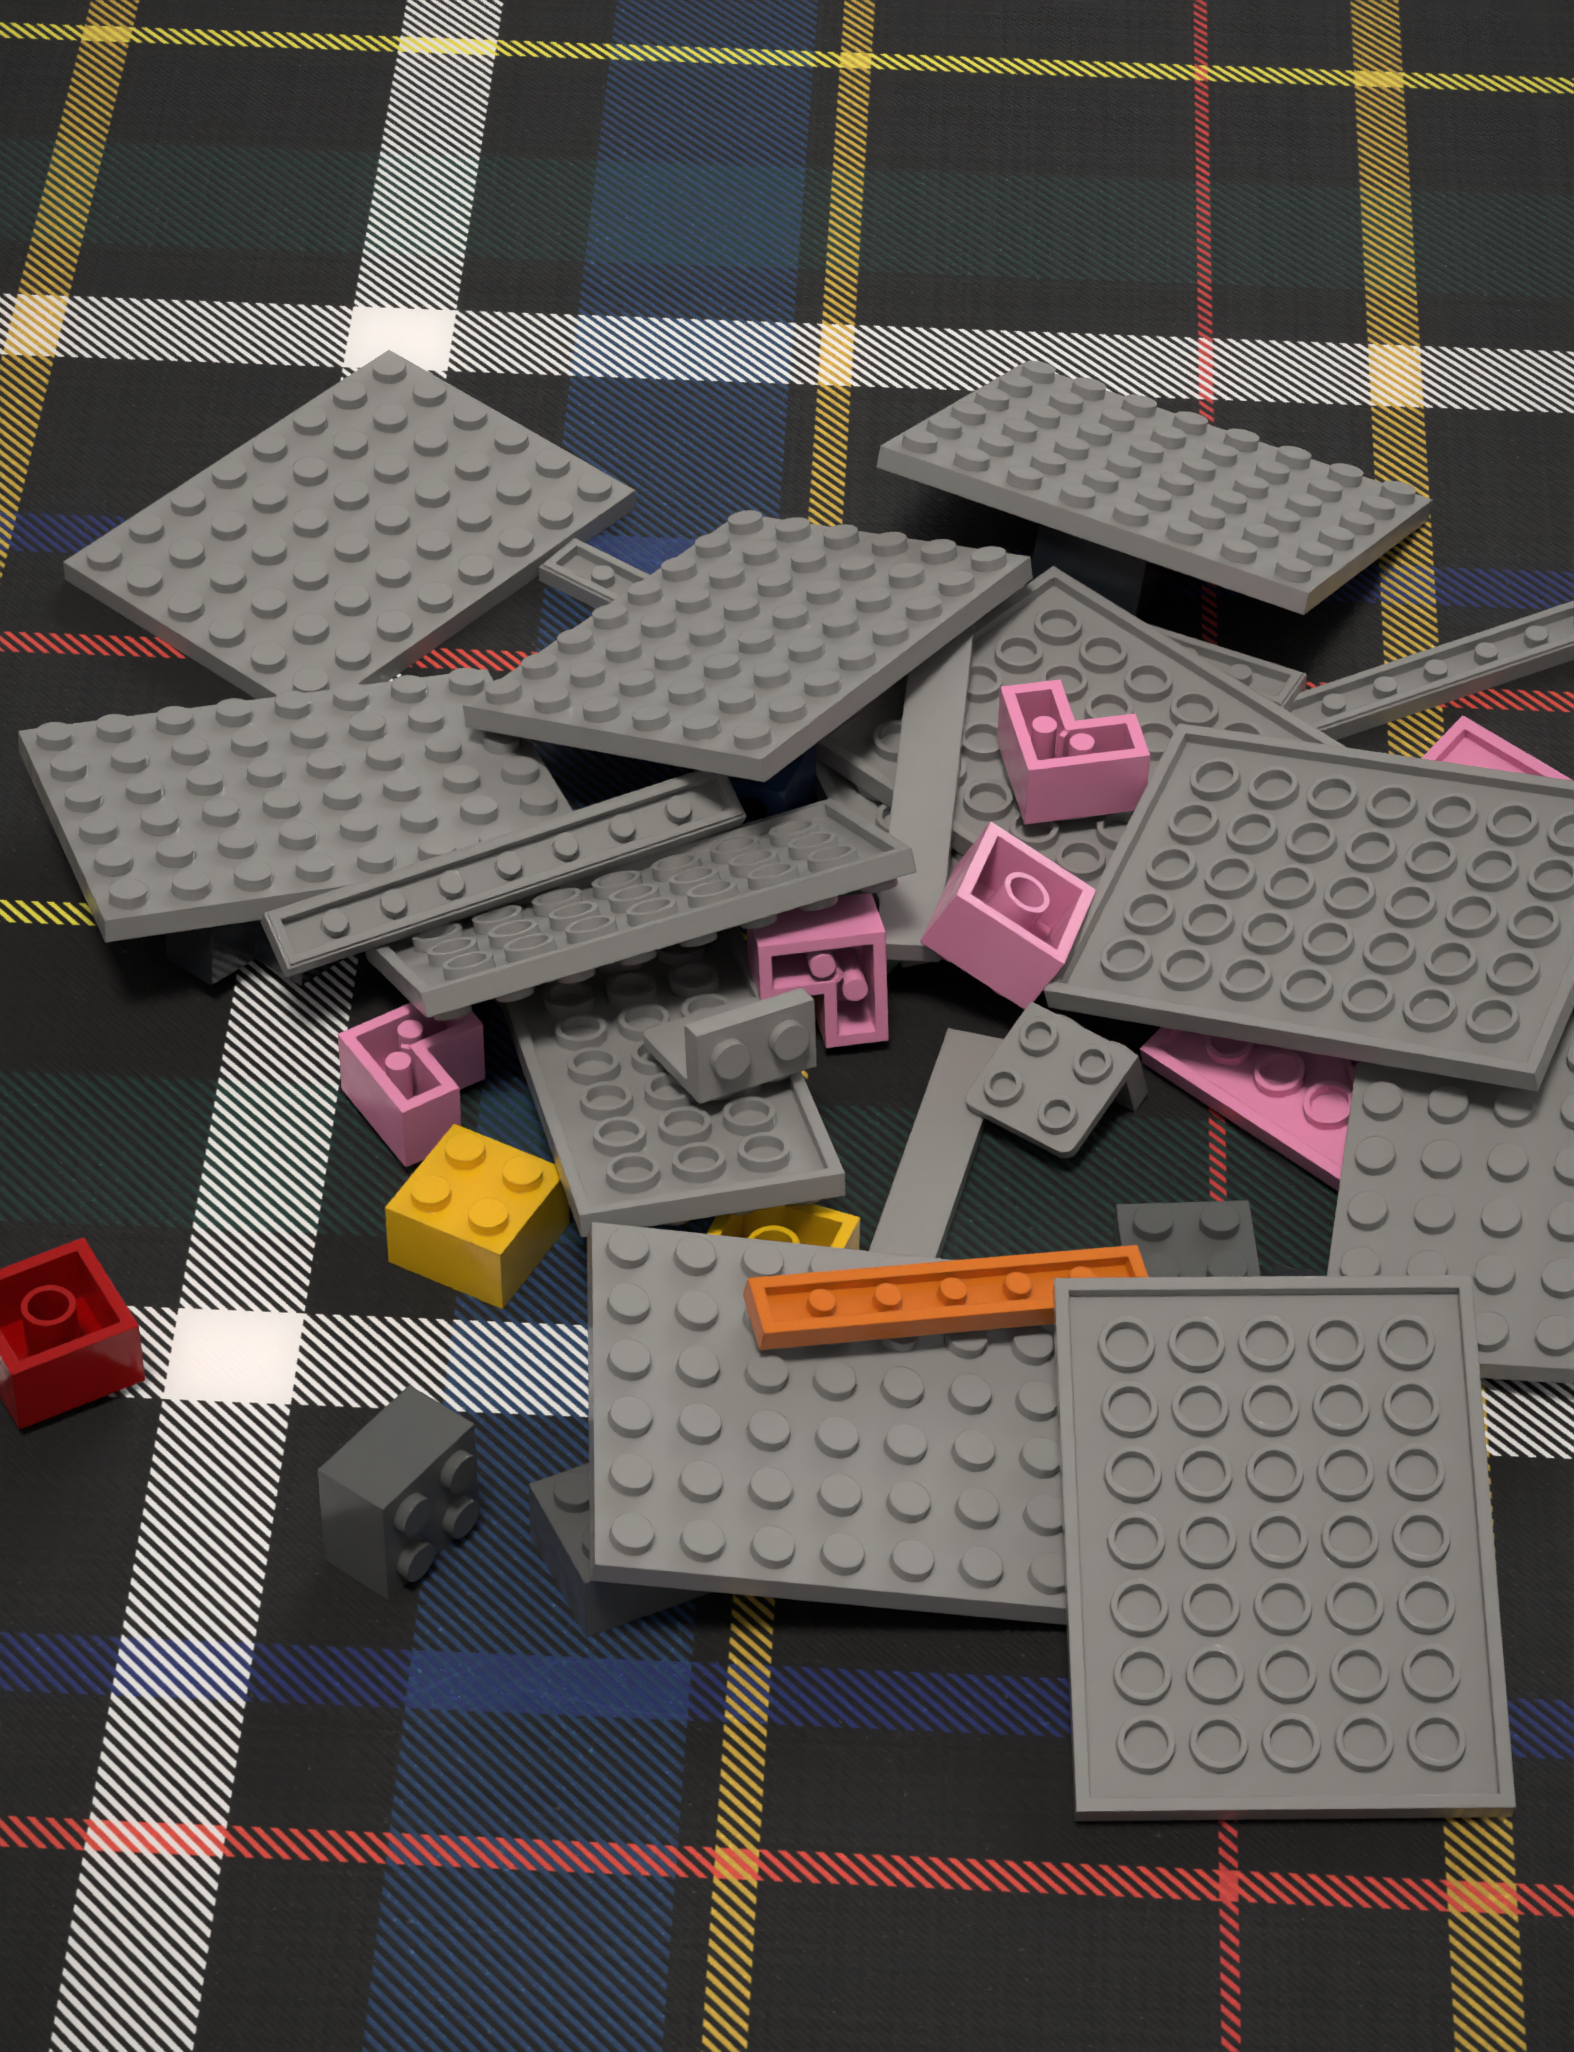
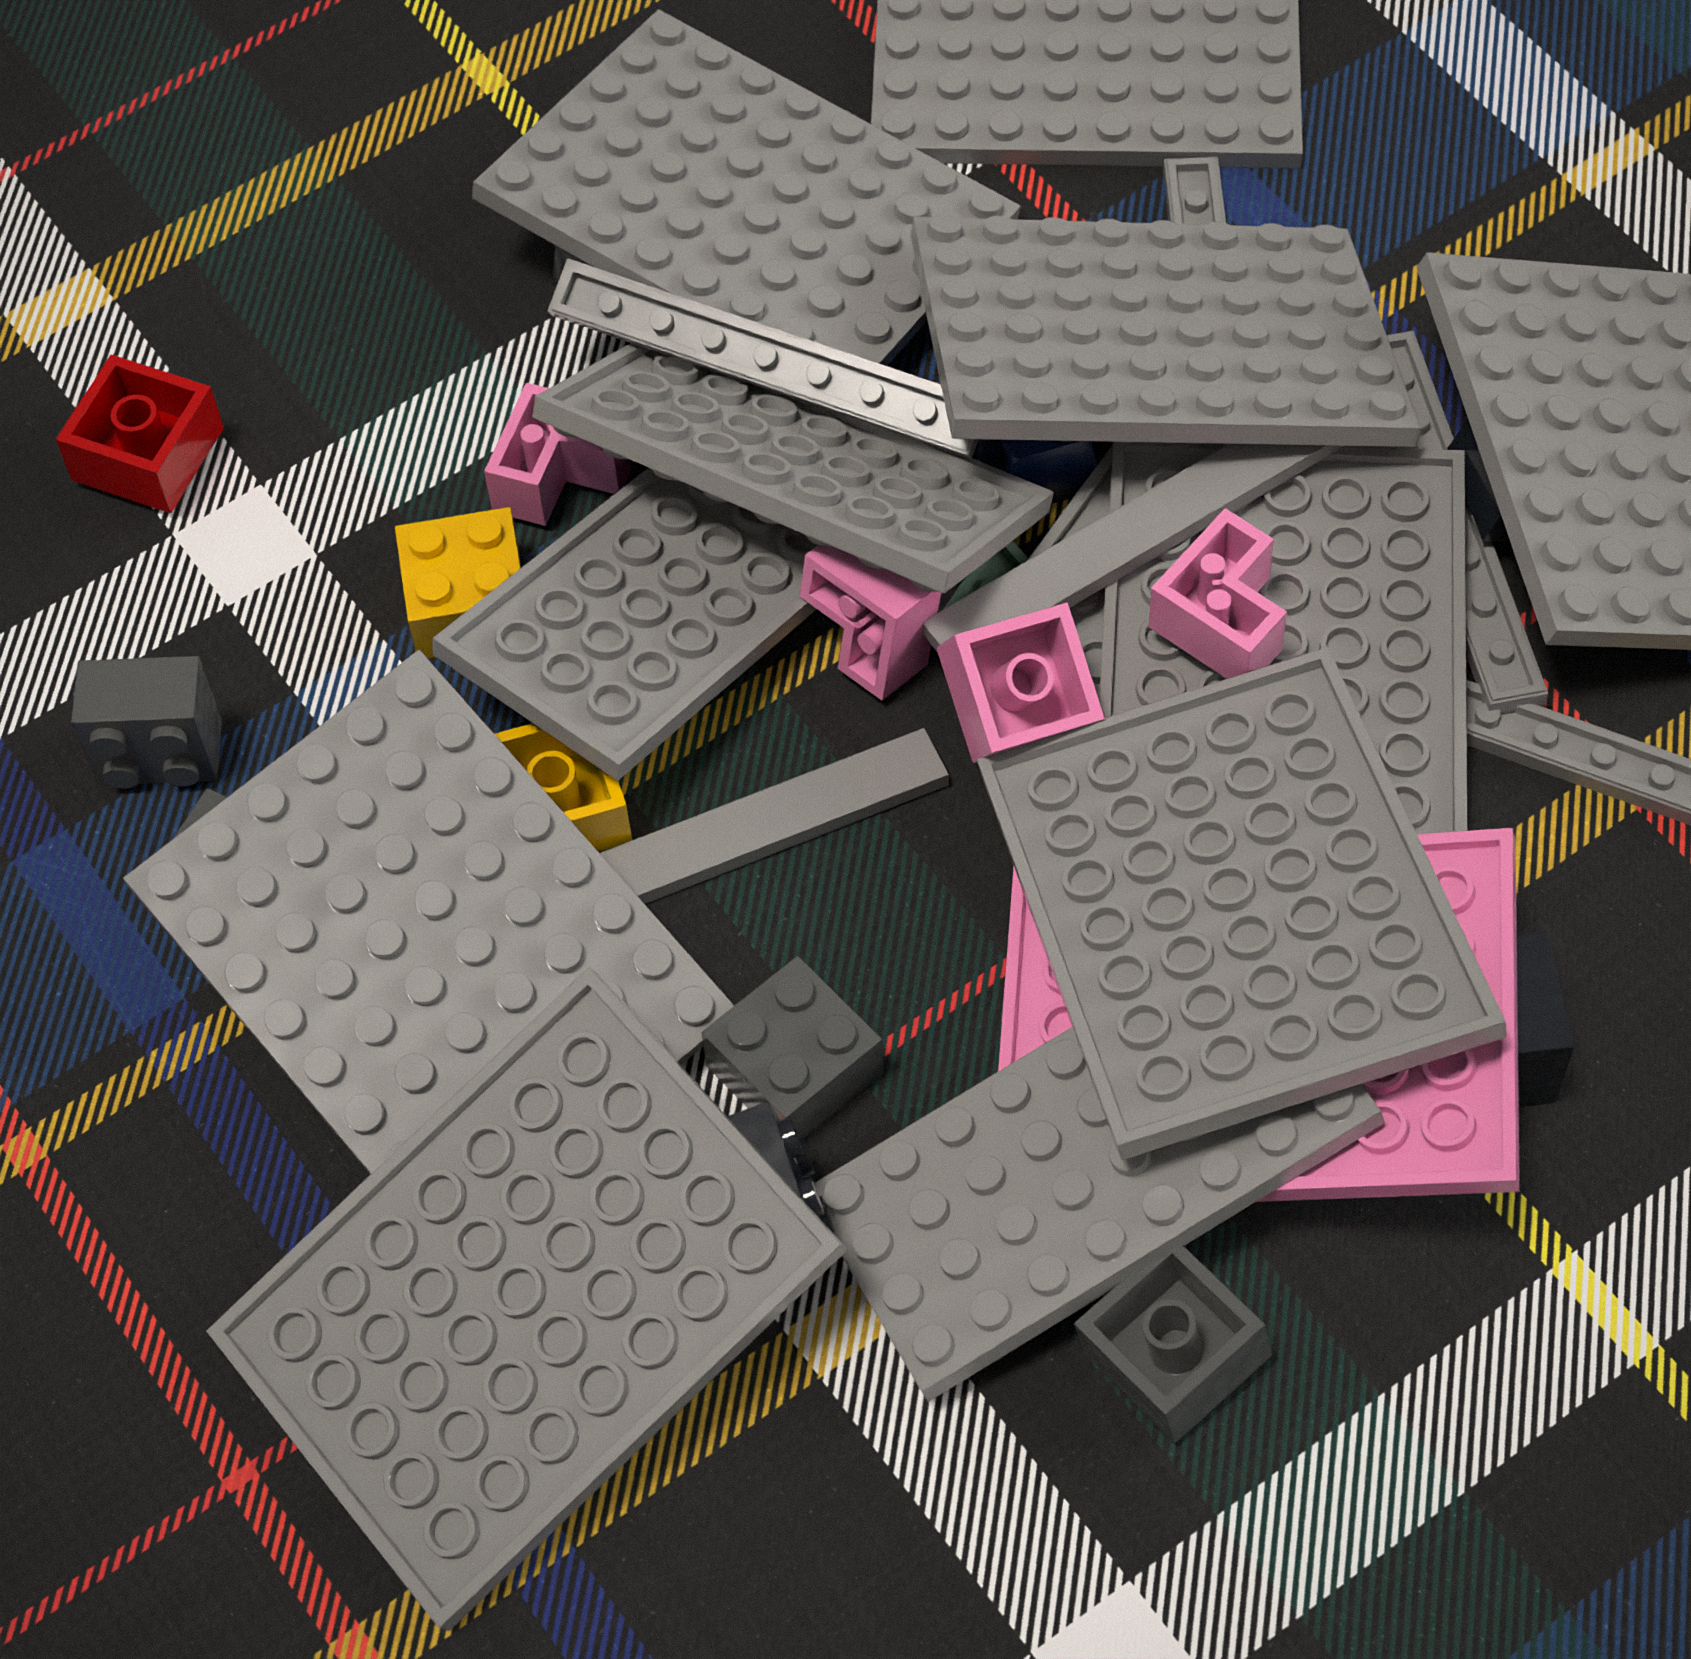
camera: 55 degrees right, 15 degrees up
(737, 1044) = (697, 608): light grey bracket -> none
(922, 1296) = (563, 915): orange plate -> none
(1055, 1081) = (921, 830): light grey bracket -> none

